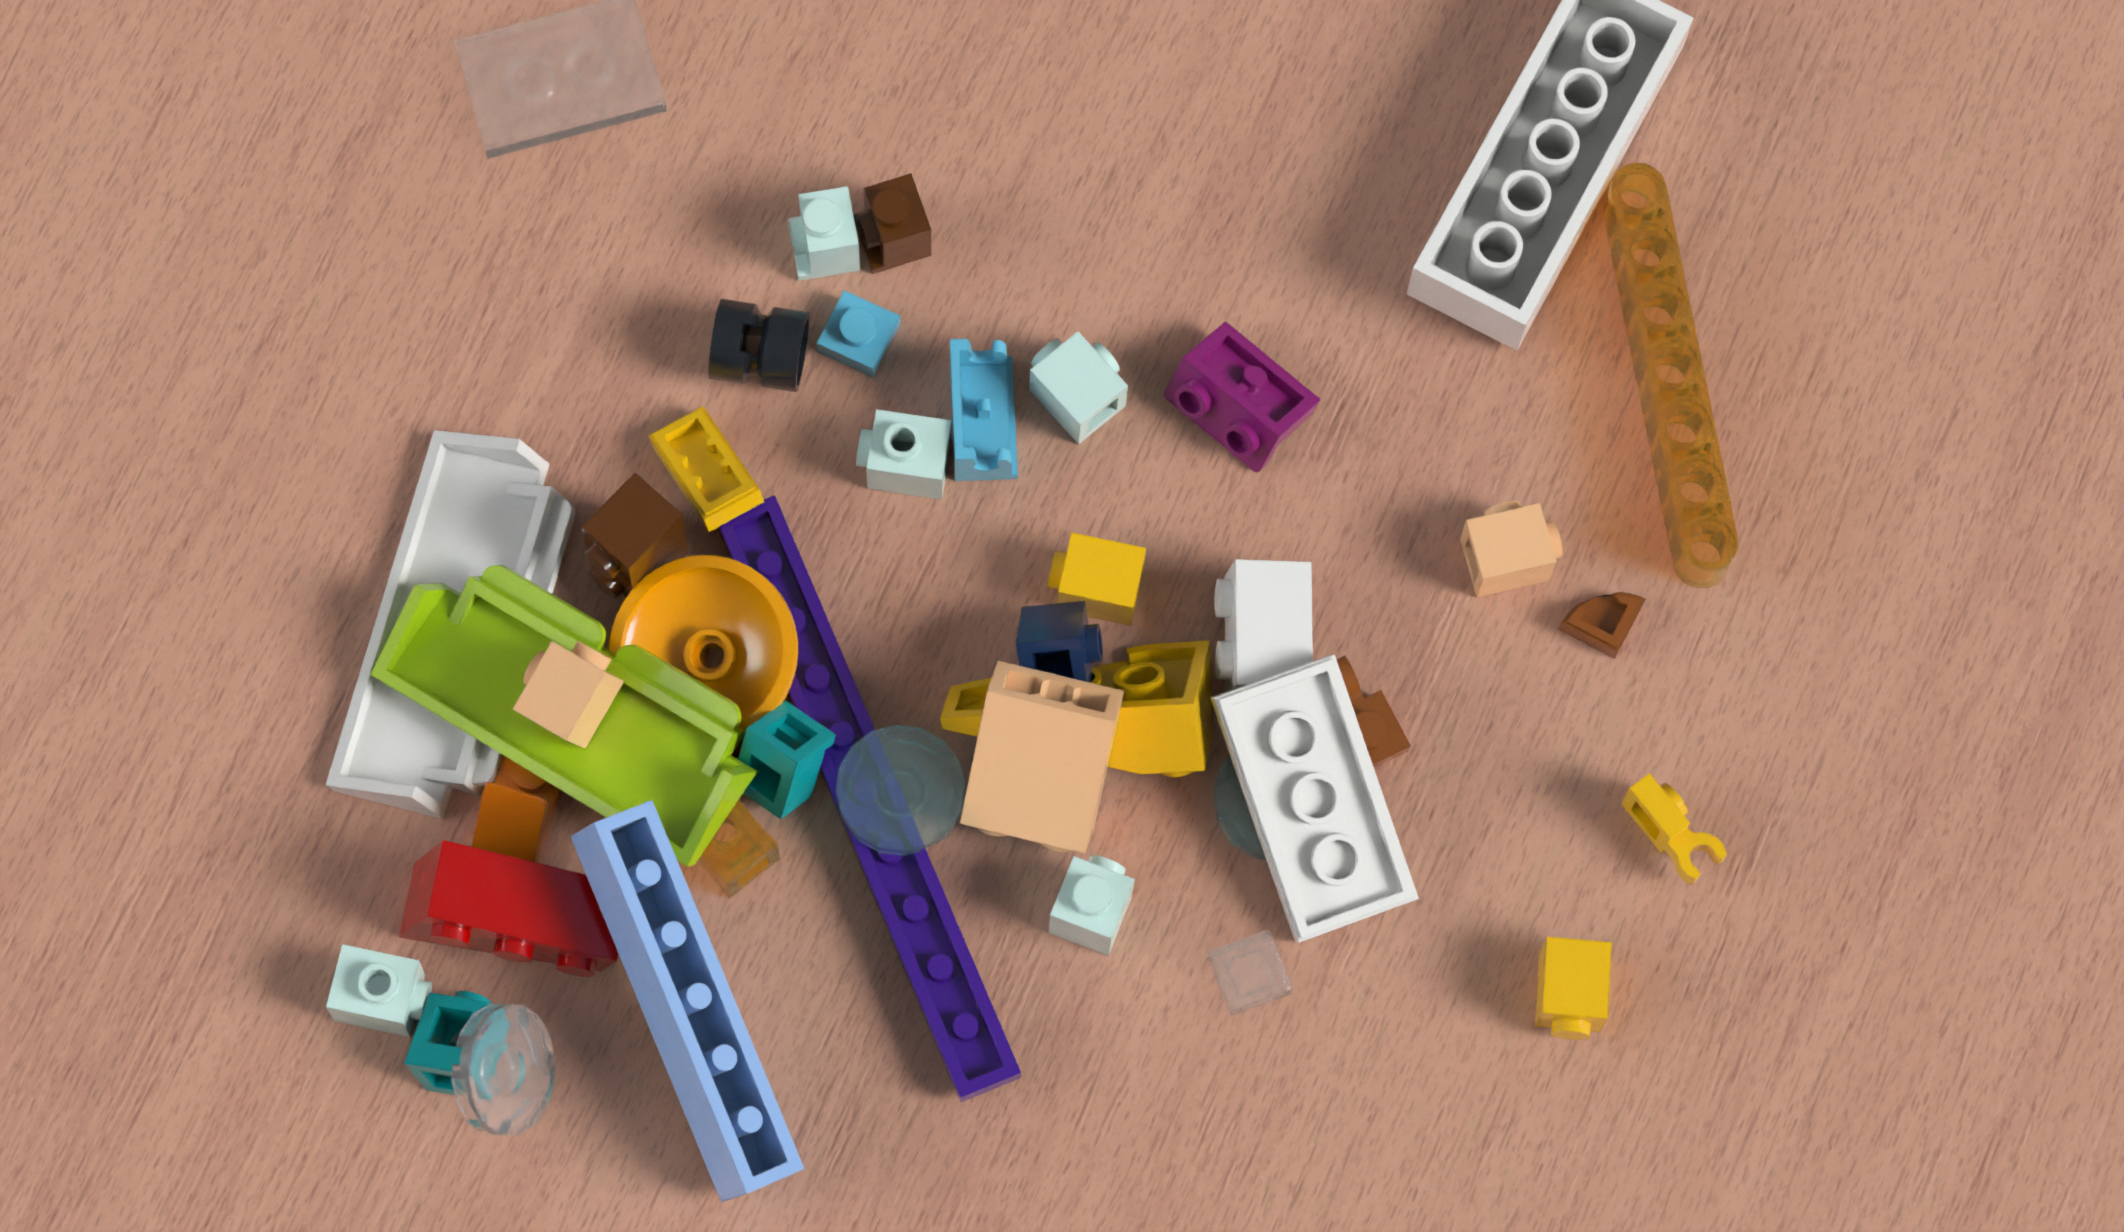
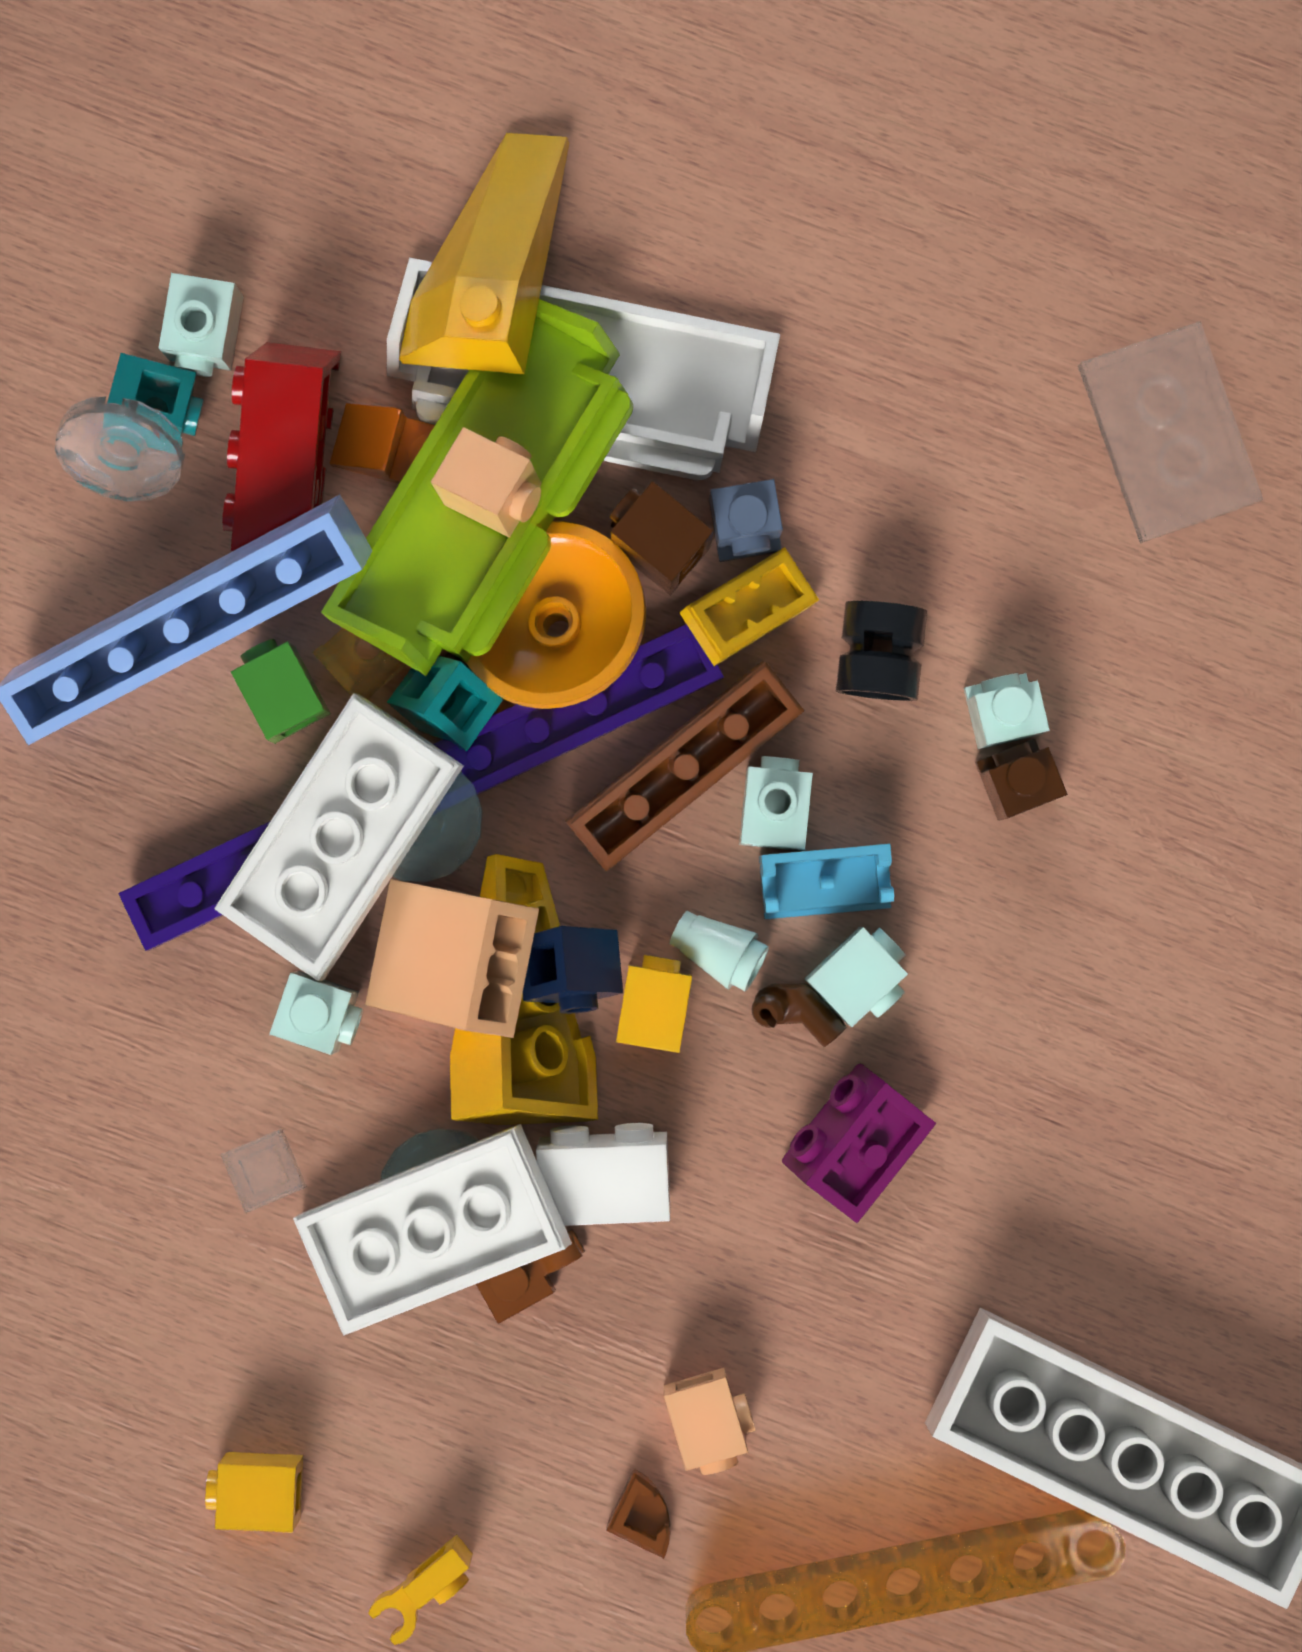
camera: 90 degrees right, 15 degrees up
(353, 700) = (489, 273): none -> yellow wedge
(614, 457) = (746, 520): none -> sand blue brick
(761, 923) = (279, 690): none -> bright green brick
(858, 333) = (907, 751): medium azure plate -> none
(862, 539) = (684, 765): none -> dark orange brick
(915, 862) = (338, 837): none -> white tile
(1045, 514) = (720, 949): none -> light aqua cone
(1104, 446) = (797, 1005): none -> reddish brown arm

